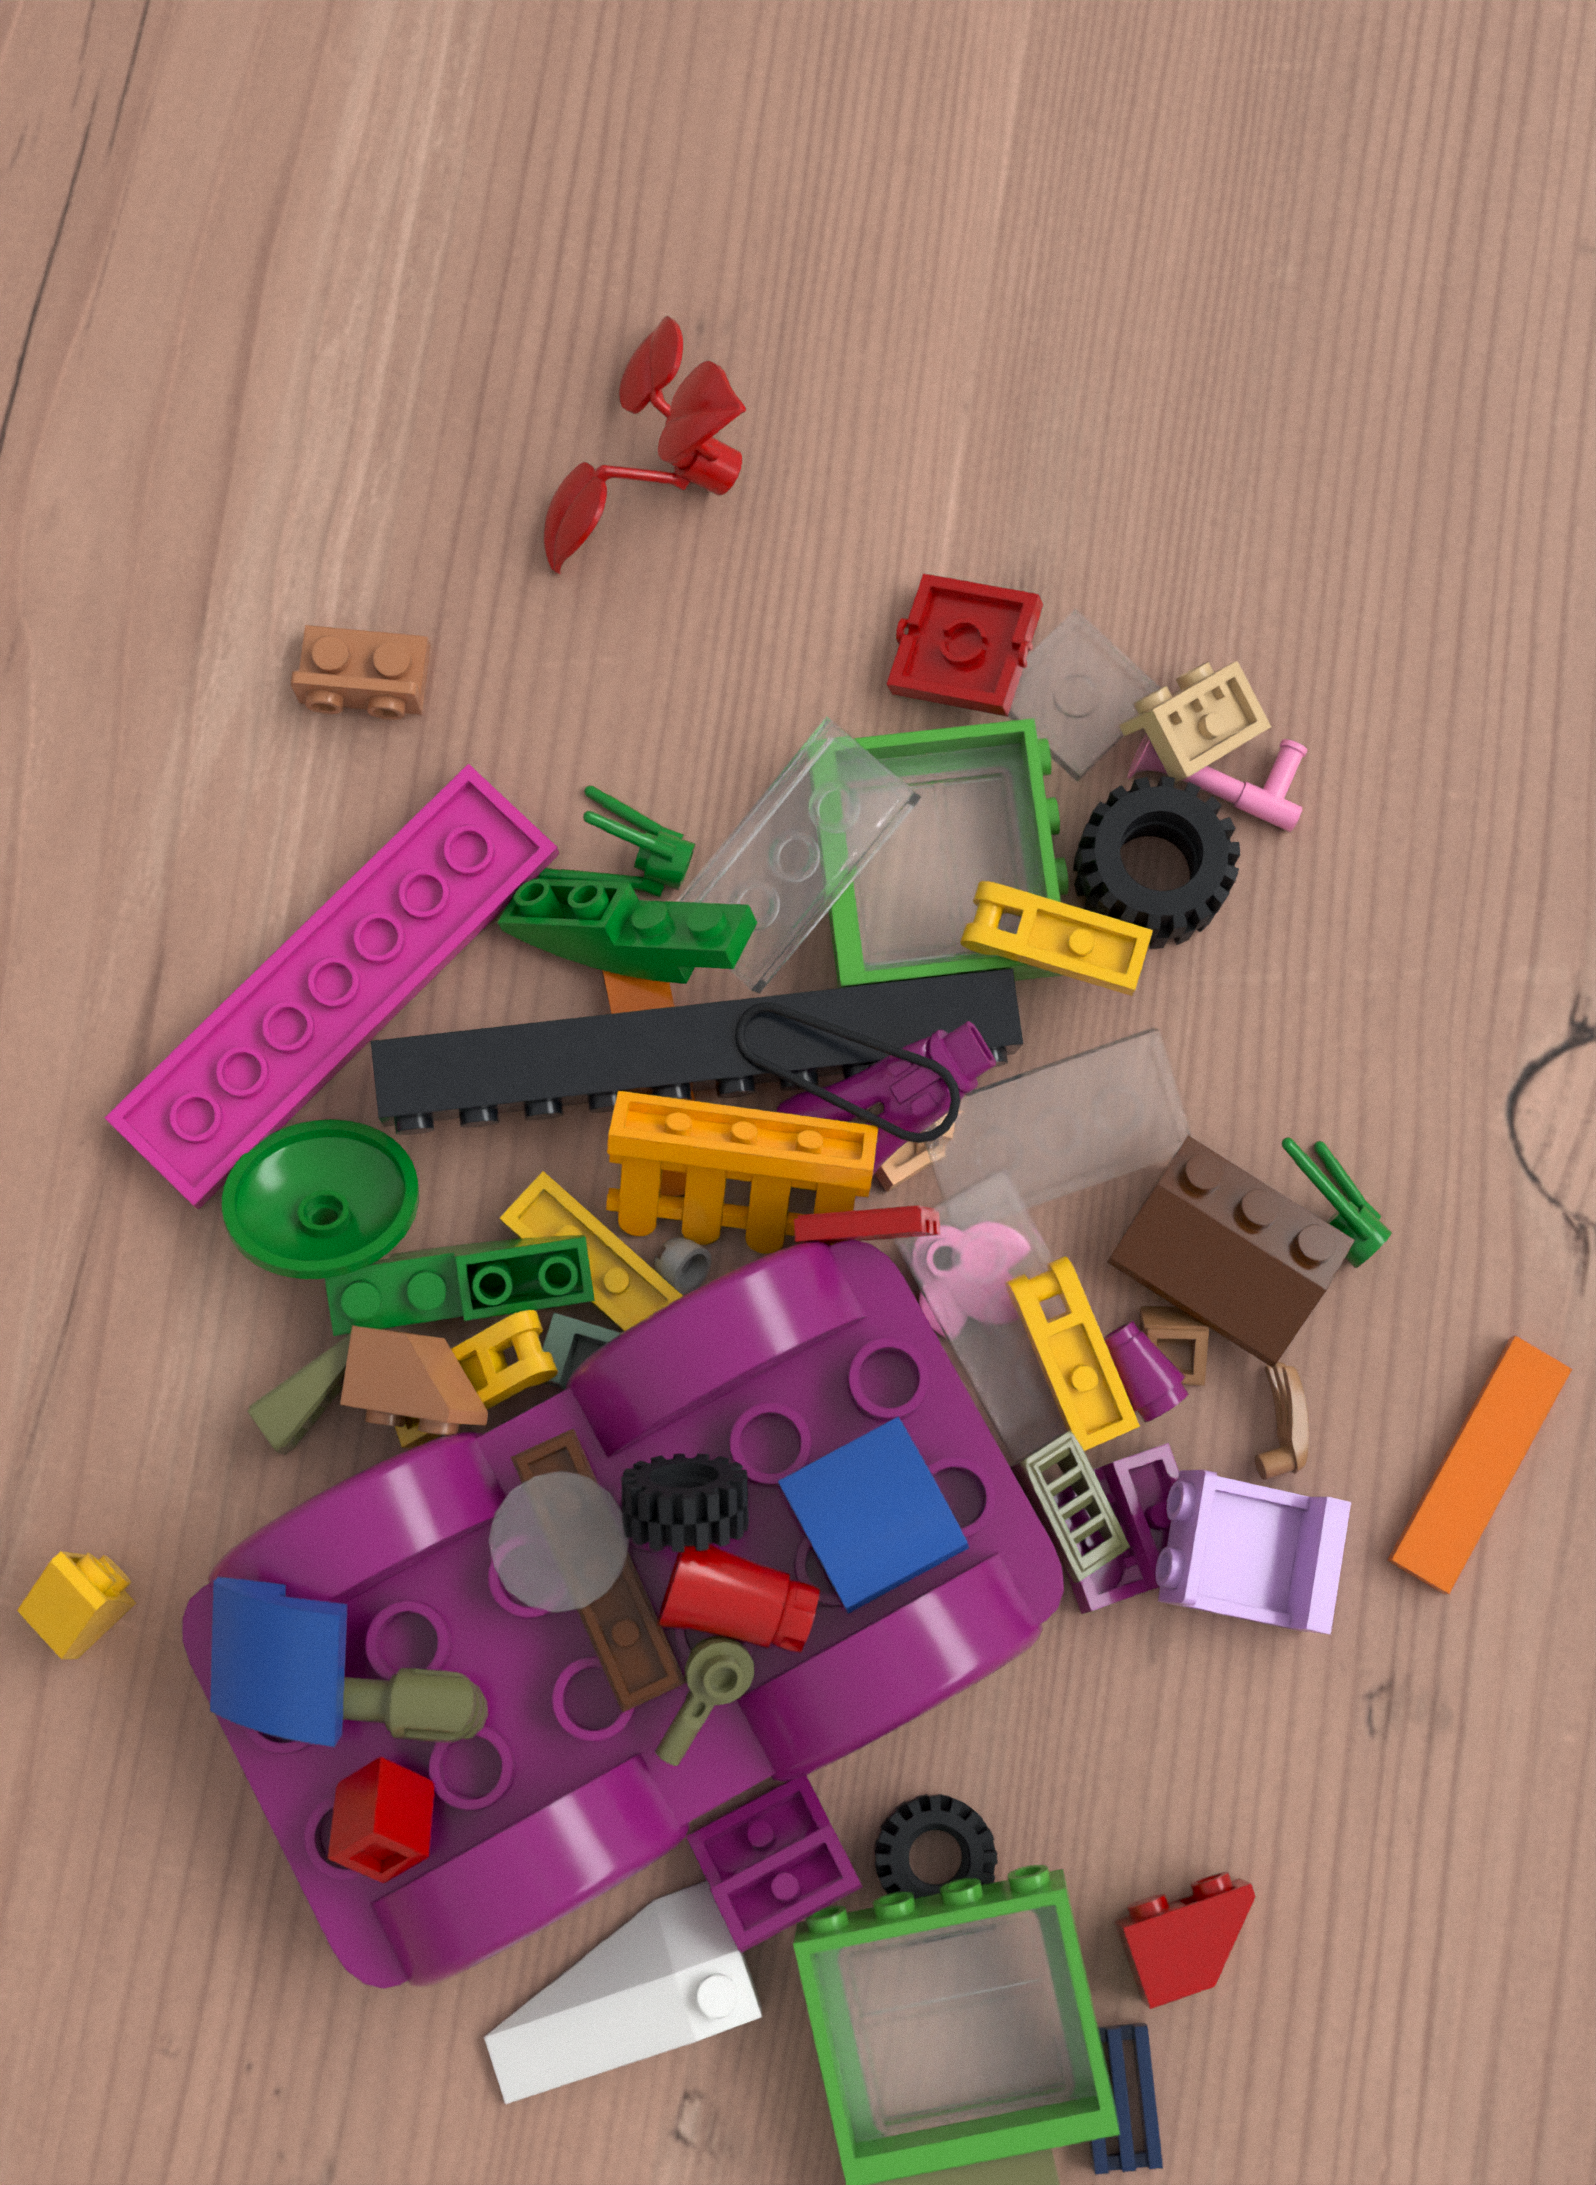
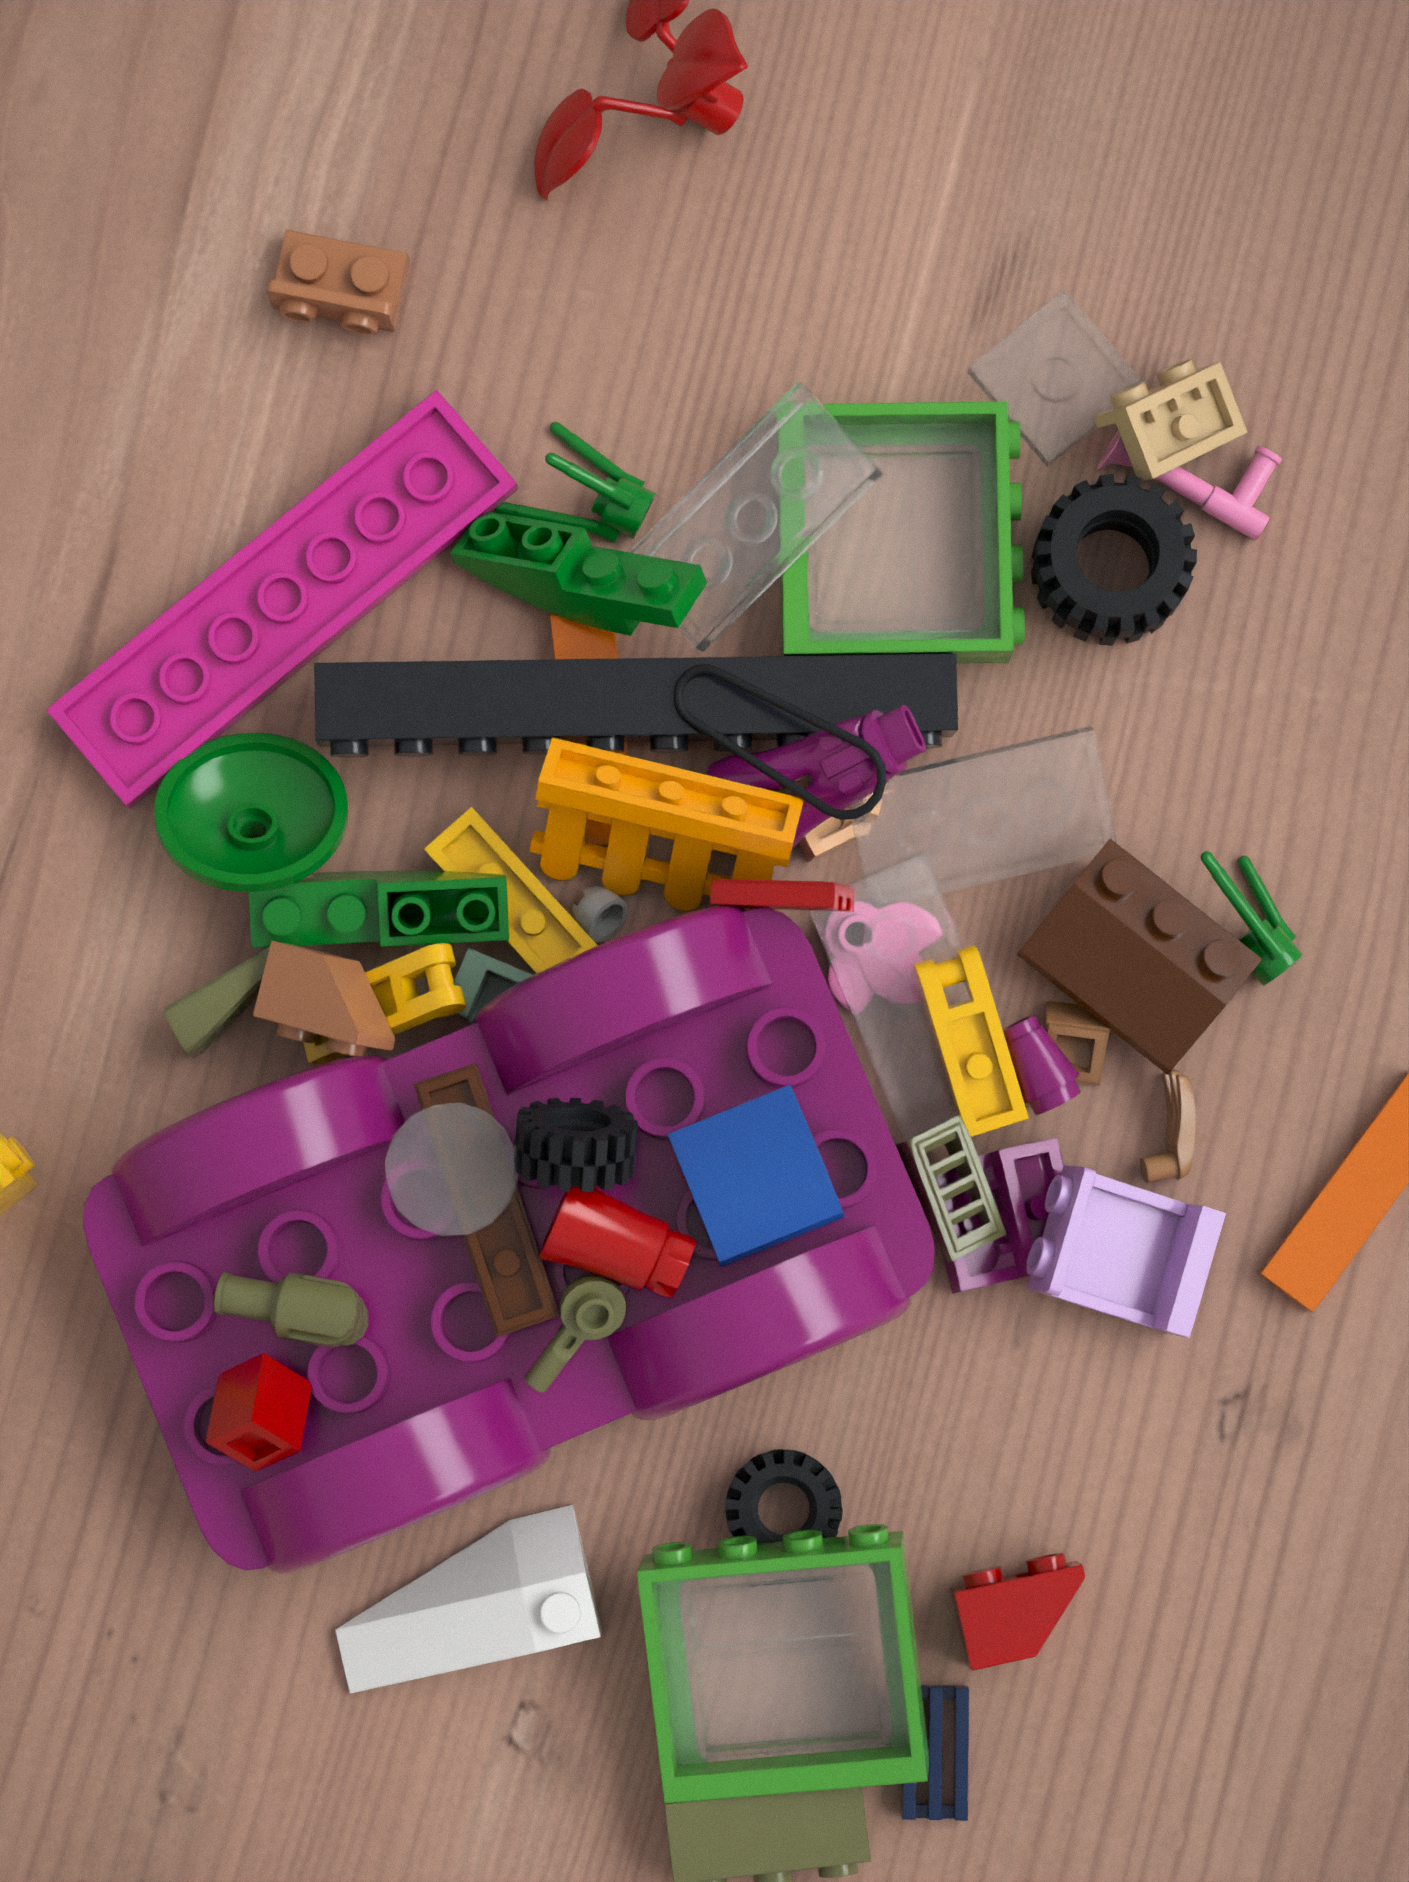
camera: 10 degrees right, 5 degrees up
(278, 1661) = (174, 1253): blue slope -> none
(773, 1863) = (627, 1495): magenta slope -> none
(964, 644) = (947, 316): red plate -> none
(1058, 937) = (1004, 628): yellow plate -> none

